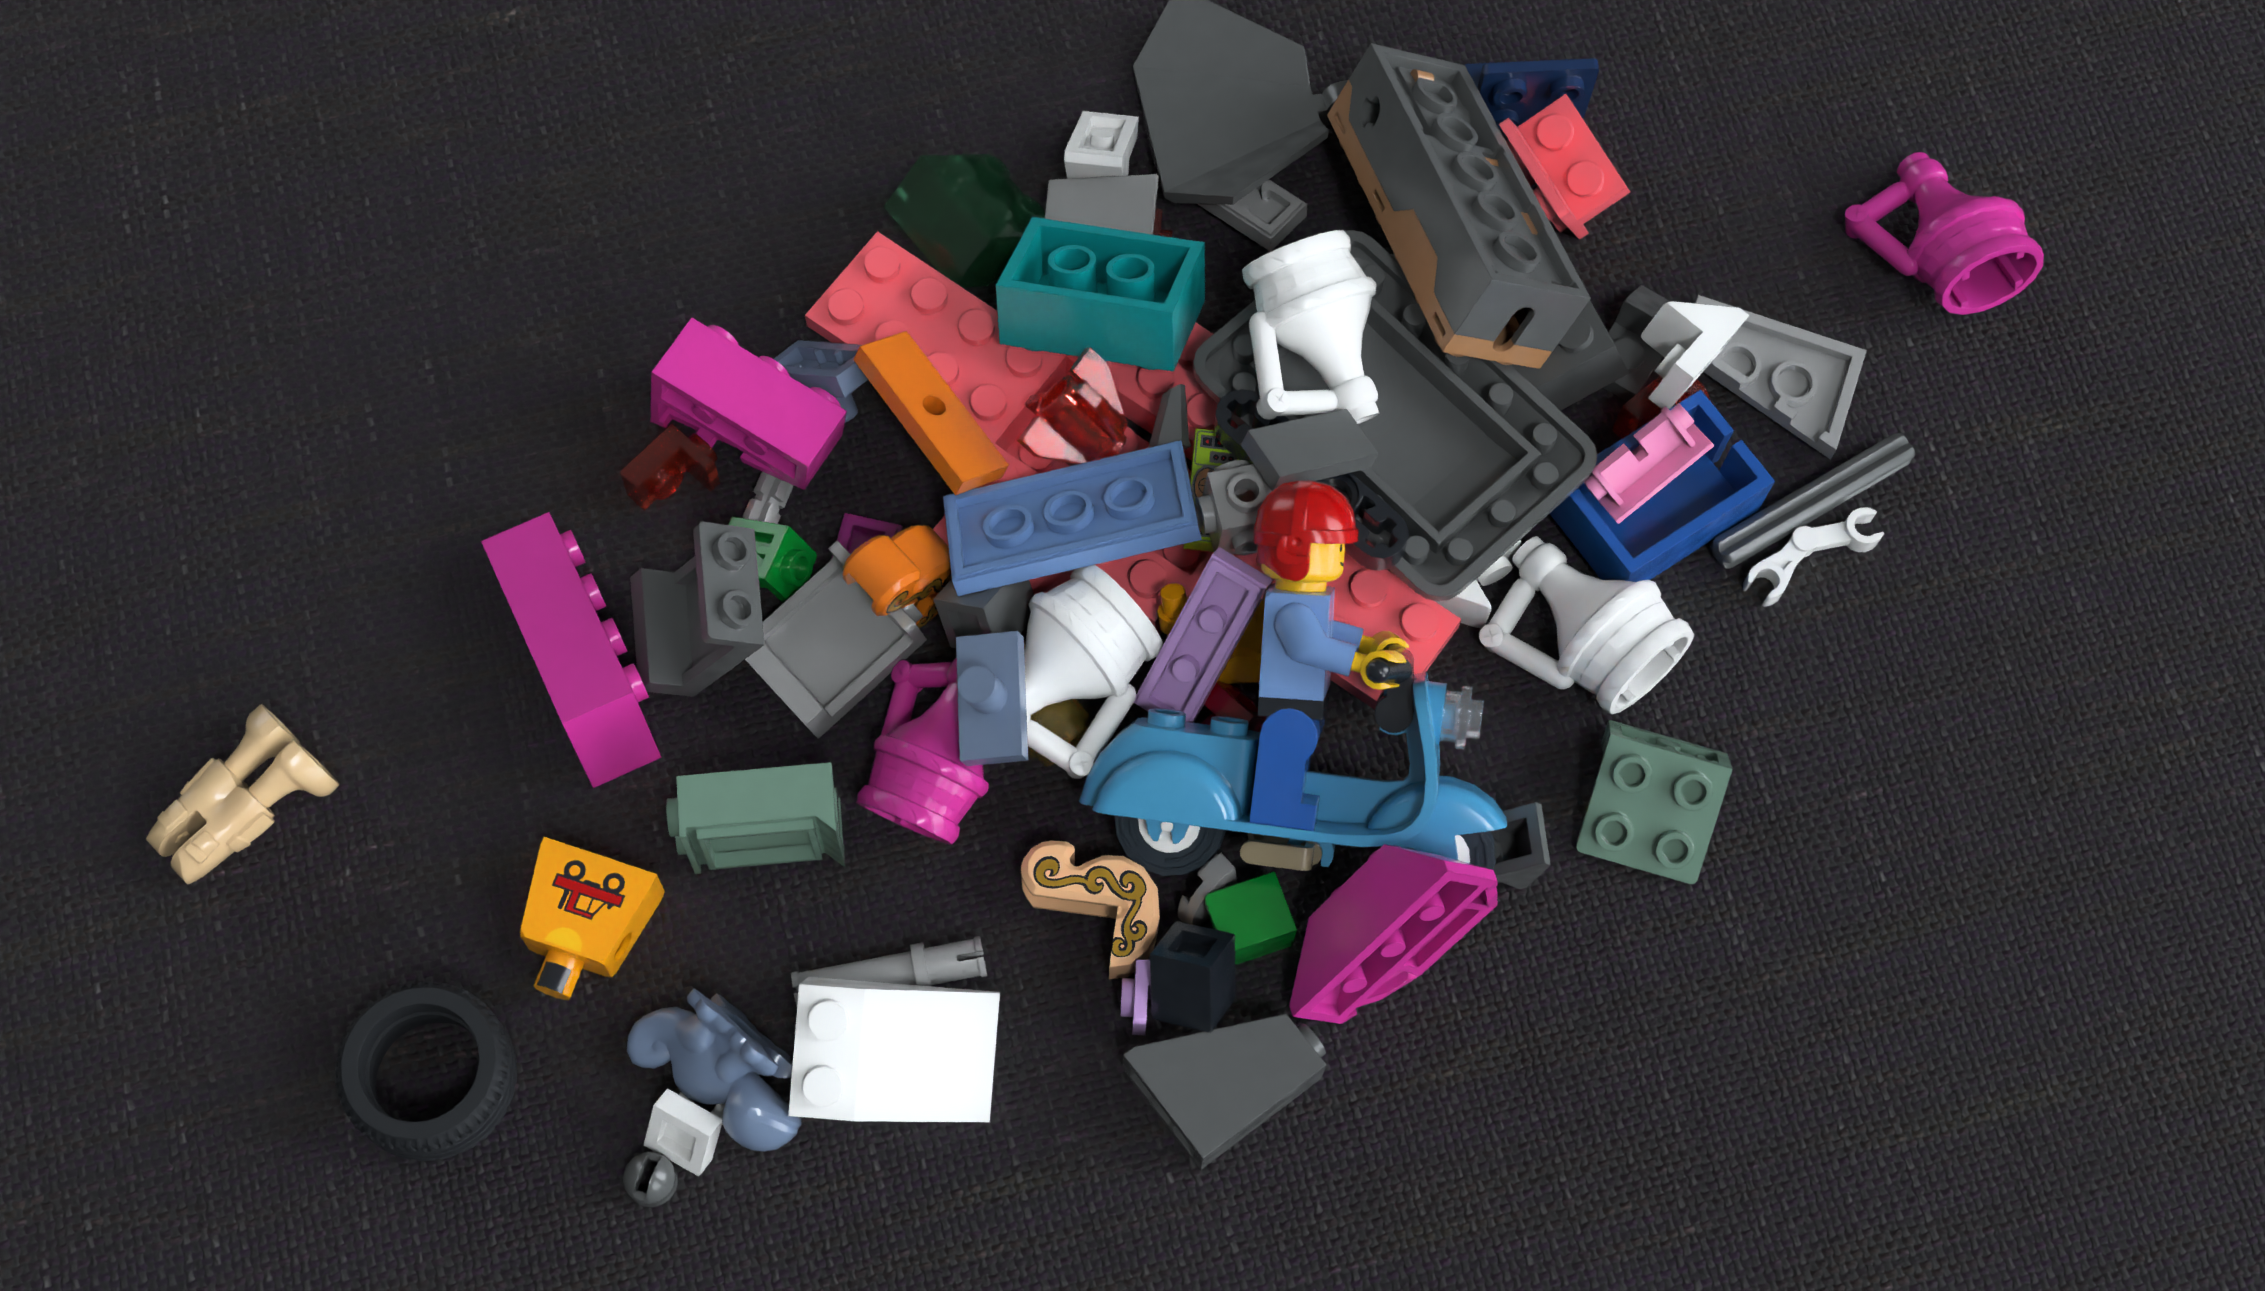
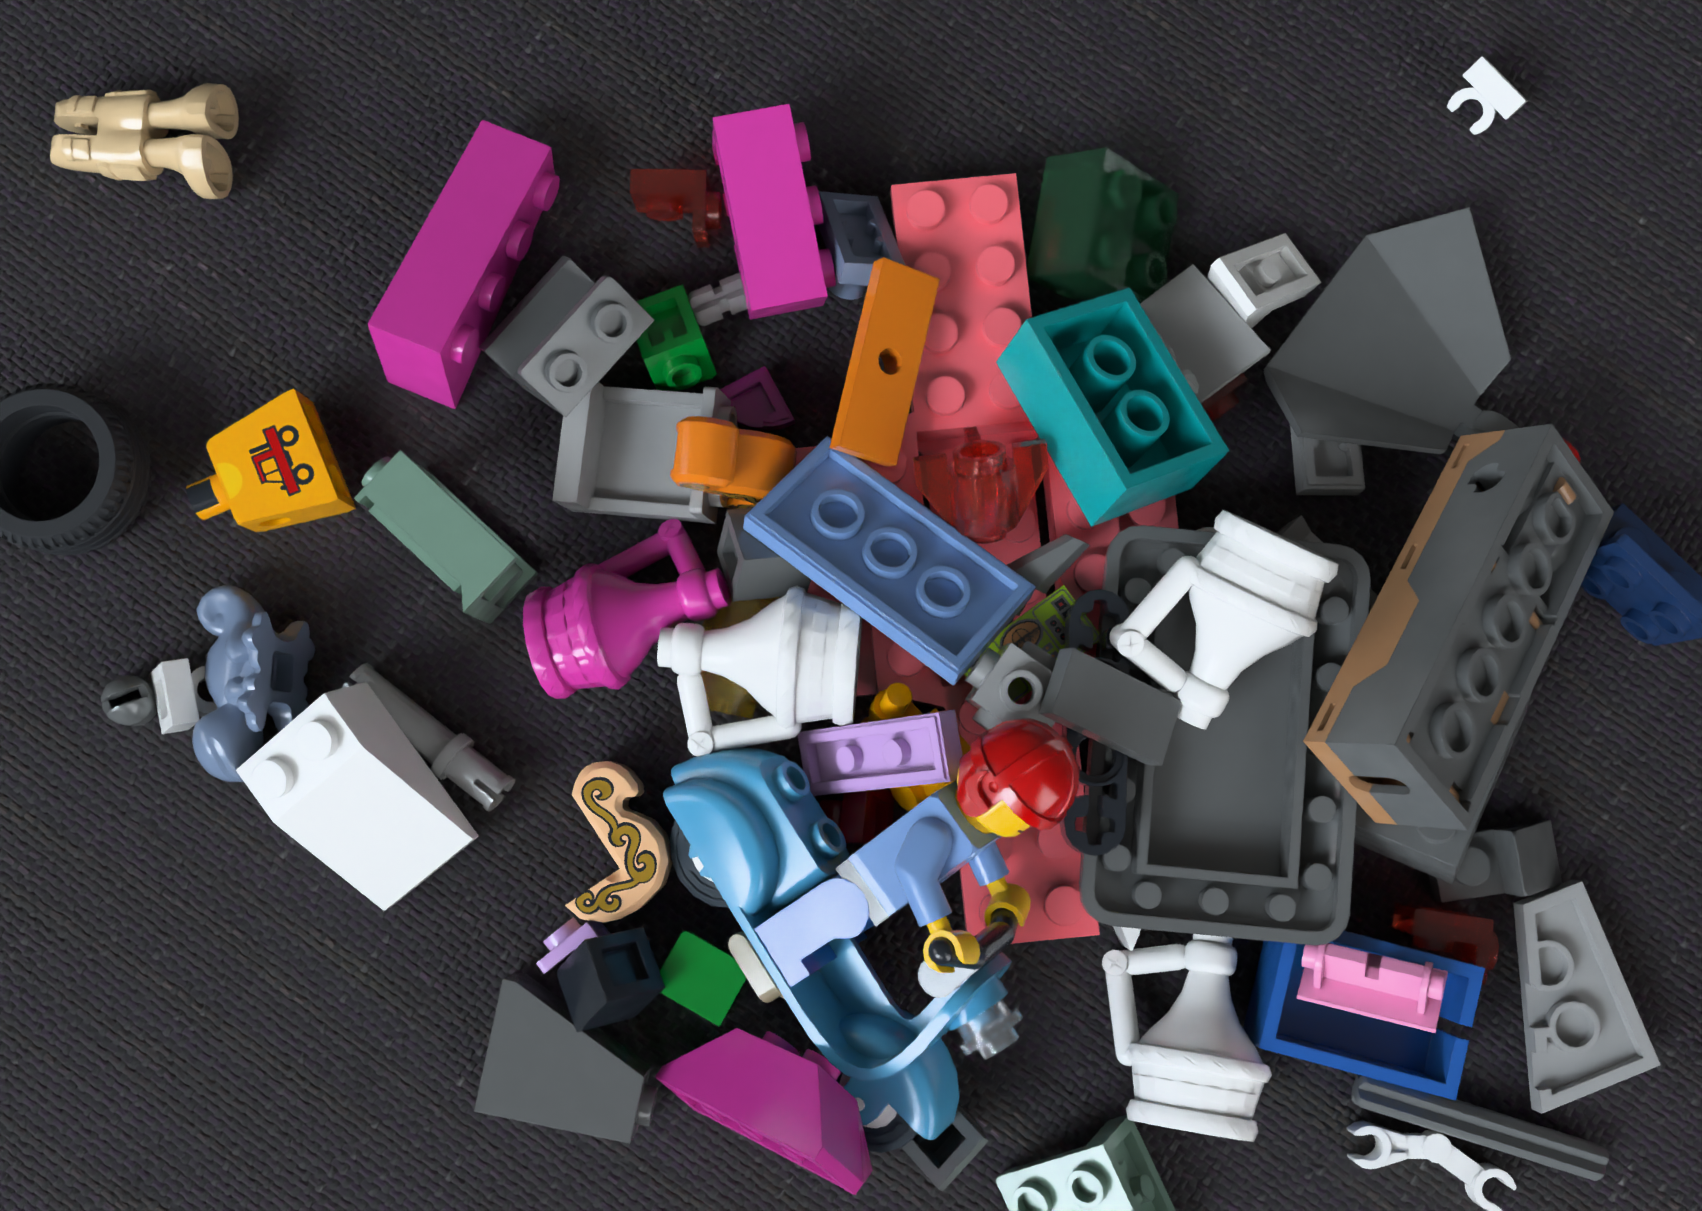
camera: 50 degrees right, 15 degrees up
(991, 698) = (675, 634): sand blue tile -> none
(1216, 875) = (708, 922): light grey tile -> none
(1566, 164) = (1597, 674): coral bracket -> none
(1689, 340) = (1522, 928): white slope -> none

